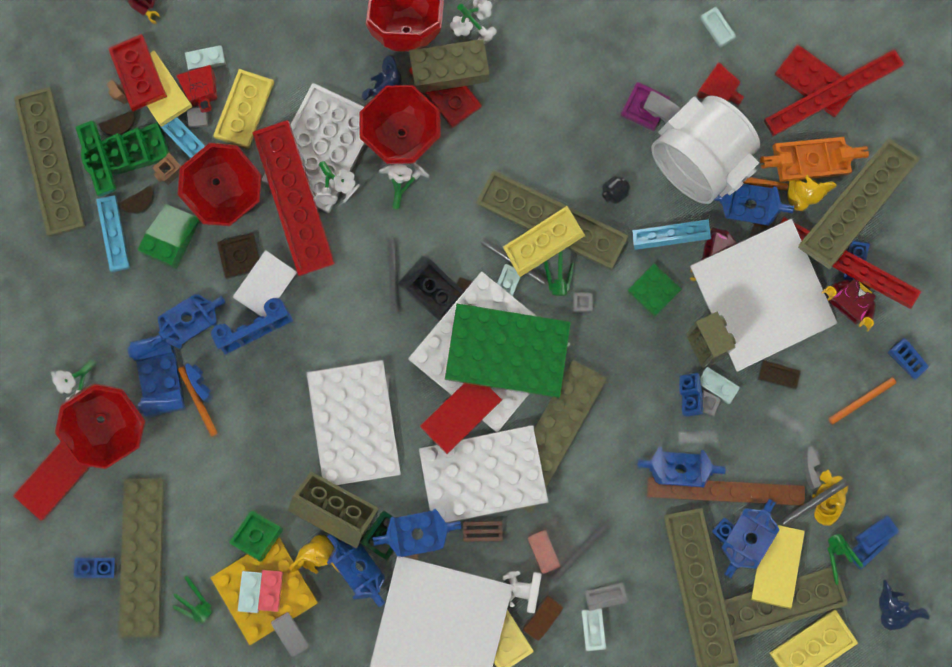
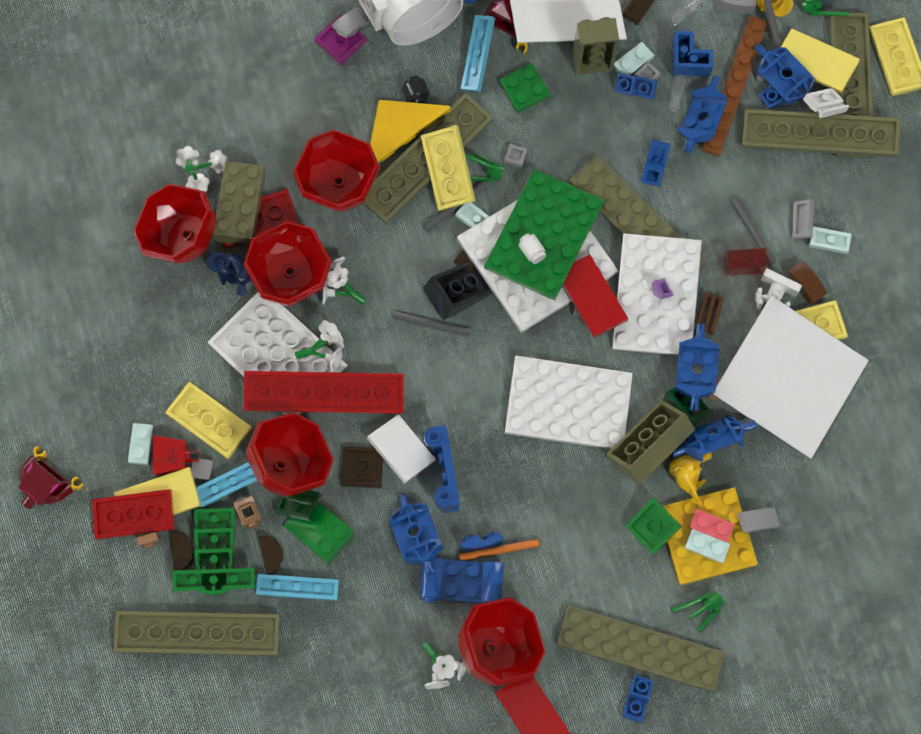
camera: 80 degrees left, 5 degrees down
(182, 214) = (299, 505): none -> dark green plate
(483, 341) = (532, 248): none -> white brick
(485, 477) = (661, 289): none -> medium lavender slope
(507, 126) = (335, 158): none -> red rock
(574, 183) = (399, 123): none -> yellow tile
(618, 436) = (655, 162): none -> blue slope
(731, 586) = (826, 102): none -> white plate
(733, 435) = (688, 60): none -> blue brick

